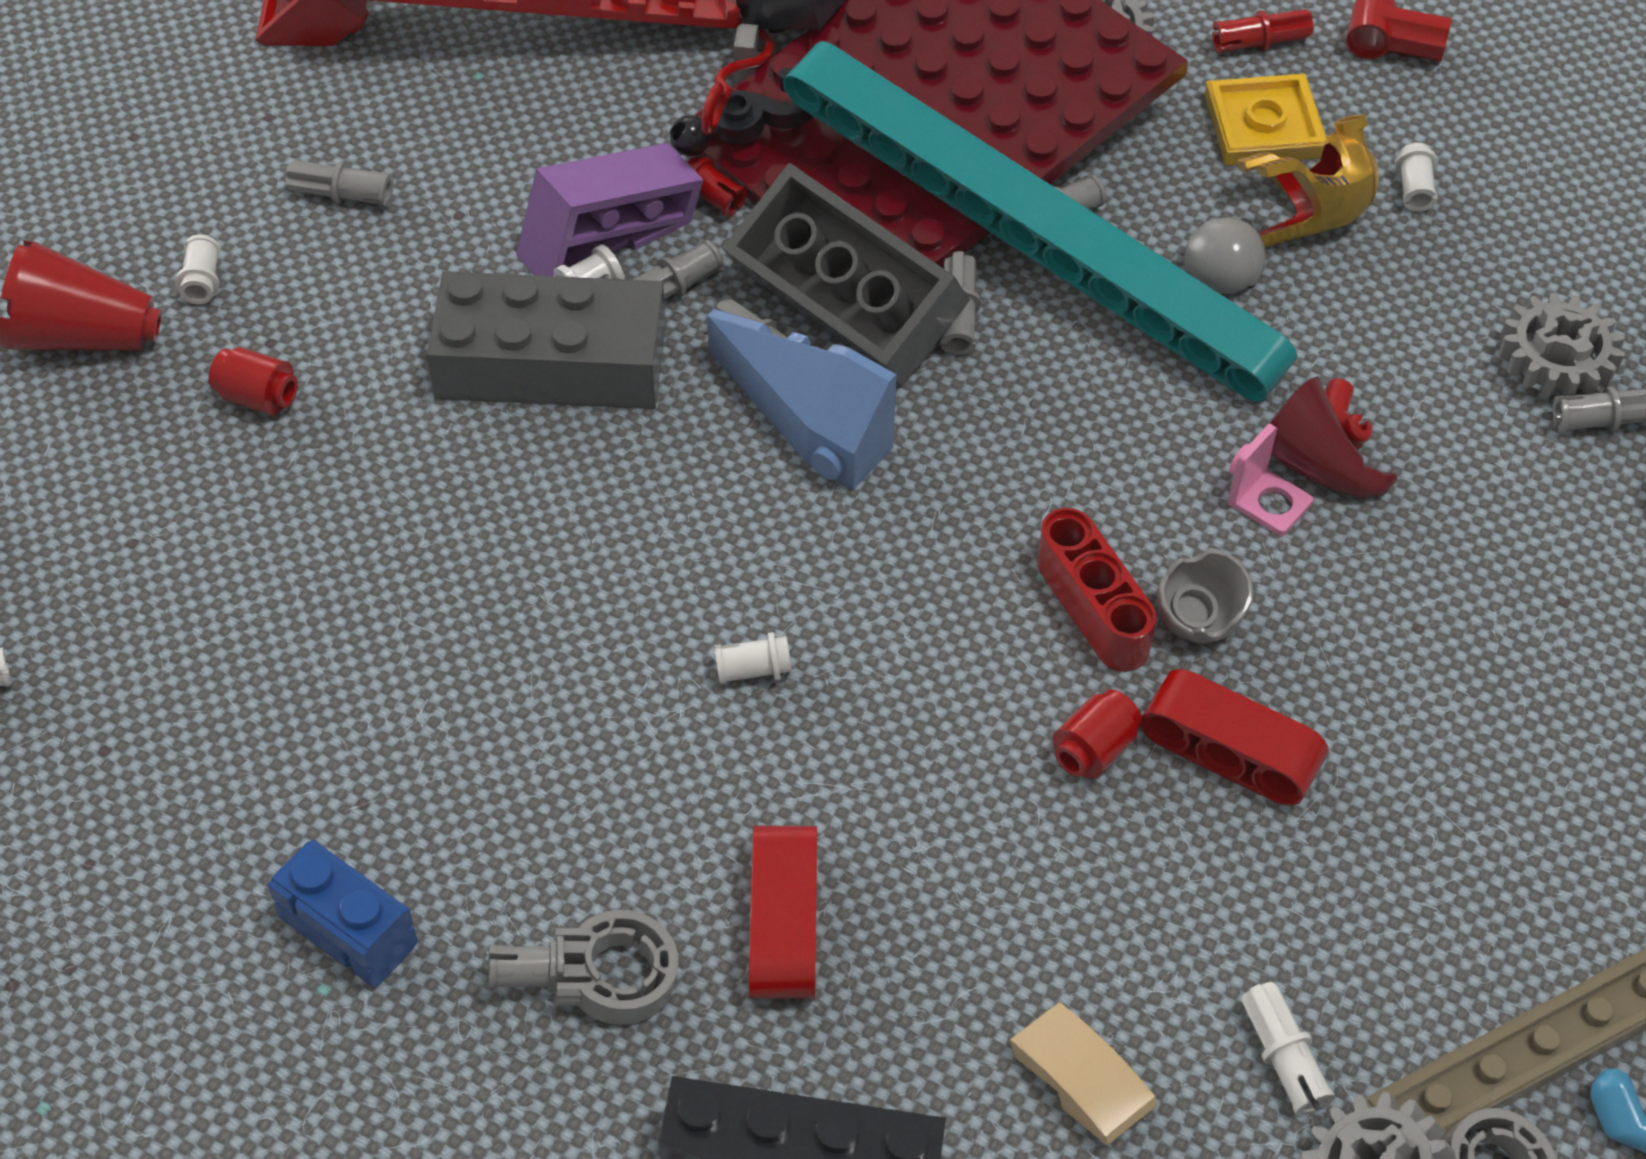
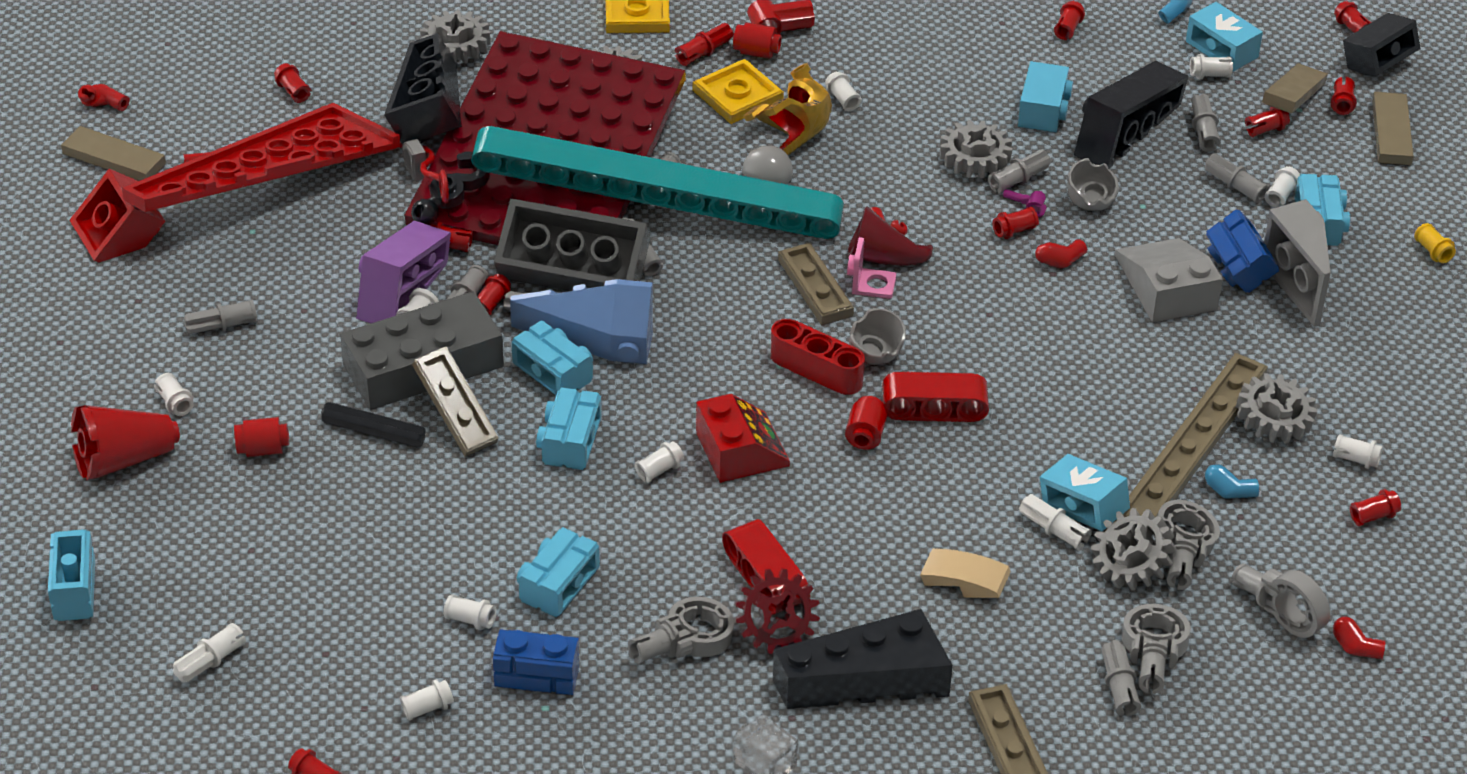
camera: 30 degrees left, 10 degrees down
(163, 897) = (427, 699): none -> white pin
(332, 791) = (479, 614): none -> white pin
(415, 425) = (373, 424): none -> black axle
(483, 775) = (558, 571): none -> medium azure brick
(529, 439) = (455, 401): none -> tile
(663, 549) = (570, 428): none -> medium azure brick
(705, 294) = (494, 291): none -> red pin
(714, 979) = (787, 595): none -> dark red gear
(716, 429) = (552, 358): none -> medium azure brick
(893, 673) = (738, 438): none -> red slope
(1179, 467) = (815, 284): none -> dark tan tile
(1338, 52) = (757, 40): none -> red brick
(1363, 1022) = (1085, 491): none -> medium azure brick
(1549, 491) = (1007, 224): none -> red pin
(1590, 577) = (1059, 255): none -> red arm
(1603, 470) = (1036, 200): none -> magenta hand

